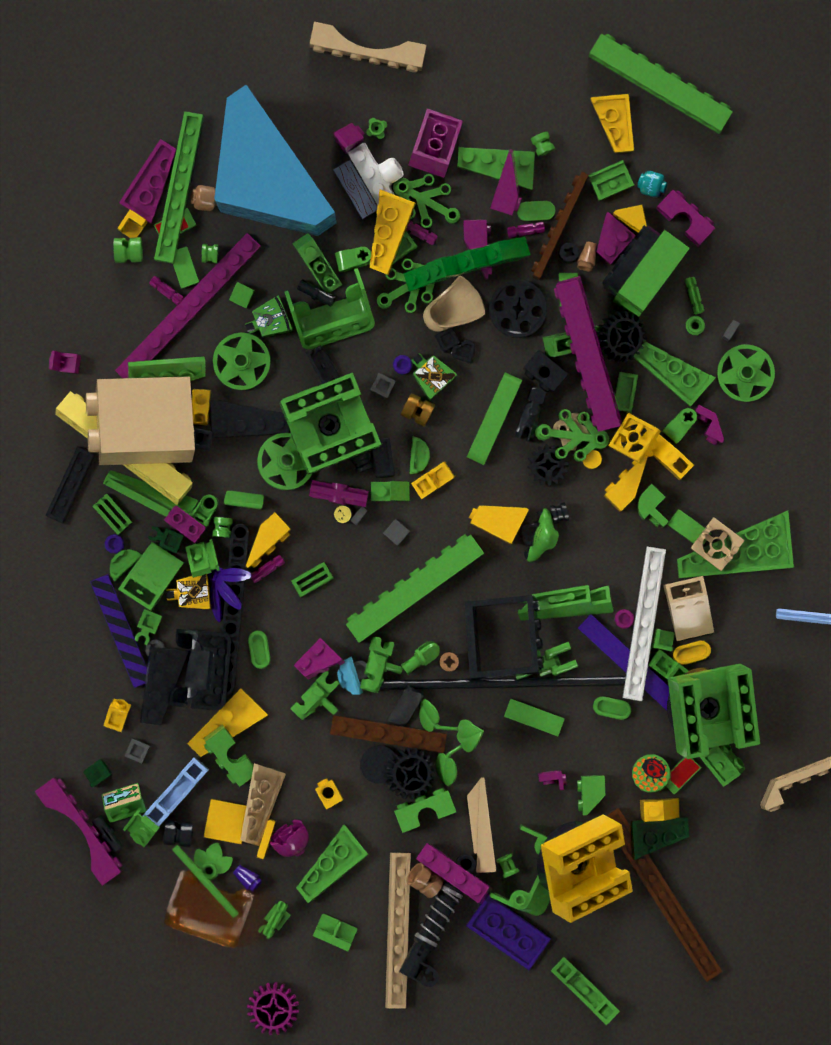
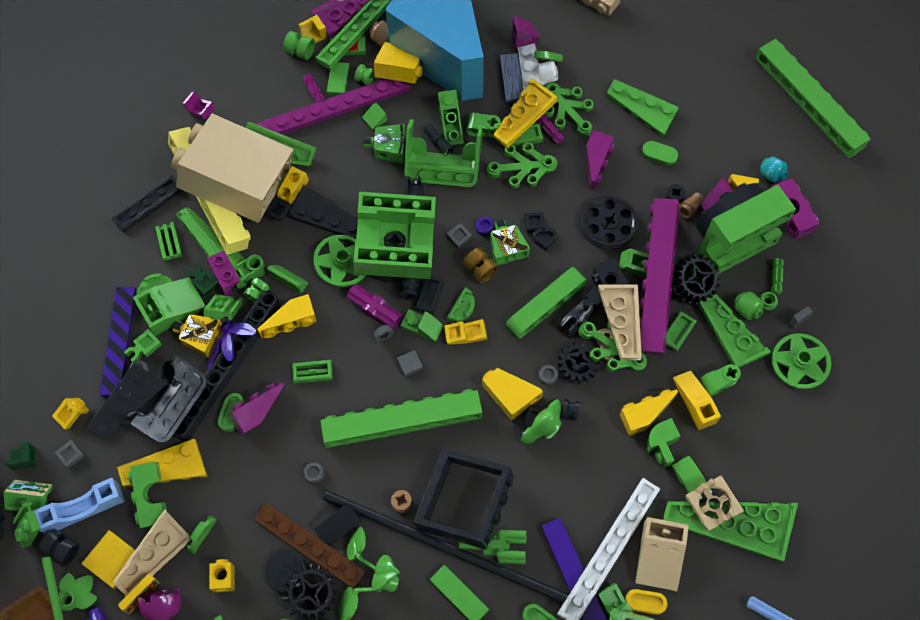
camera: 30 degrees right, 20 degrees down
(114, 543) = (156, 265): dark purple tile -> none
(239, 231) = (397, 64): none -> yellow slope
(241, 361) = (346, 166): bright green wheel -> none
(267, 568) = (277, 344): magenta axle -> none
(281, 641) = (253, 412): none -> magenta slope
(290, 766) = (200, 533): none -> bright green tile
(316, 696) = (259, 477): bright green piece -> none
(318, 660) = (278, 443): magenta wing -> none
(342, 514) = (368, 326): light yellow tile -> none
(348, 677) = (299, 473): medium azure tile -> none
(376, 123) = (551, 36): bright green plate -> none
(378, 664) = (331, 473): bright green piece -> none
(384, 154) = (548, 56): none -> bright green tile
(422, 656) = (380, 485): bright green arm -> none
(435, 143) = (594, 68): magenta slope -> none
(454, 307) = (552, 196): tan hair -> none
(466, 262) = (584, 156): green arch -> none
(507, 191) = (641, 119): magenta slope -> none
(525, 487) = (548, 375): none -> dark grey tile
(527, 229) = (644, 163): magenta axle -> none
(542, 144) = (688, 103): bright green wheel -> none
(562, 218) = (671, 174): reddish brown plate -> none
(569, 403) = (623, 316): none -> tan wing
(571, 602) = (546, 499): bright green wedge -> none
(592, 460) = (622, 377): yellow tile -> none
(610, 180) = (737, 154): bright green plate -> none
(616, 120) = (760, 109): yellow wing -> none
(624, 432) = (656, 370): yellow piece -> none
(624, 618) = (591, 538): magenta tile -> none
(663, 640) = (622, 575): bright green panel -> none
(679, 339) = (749, 305): none -> bright green head
(713, 432) = (750, 400): magenta slope -> none

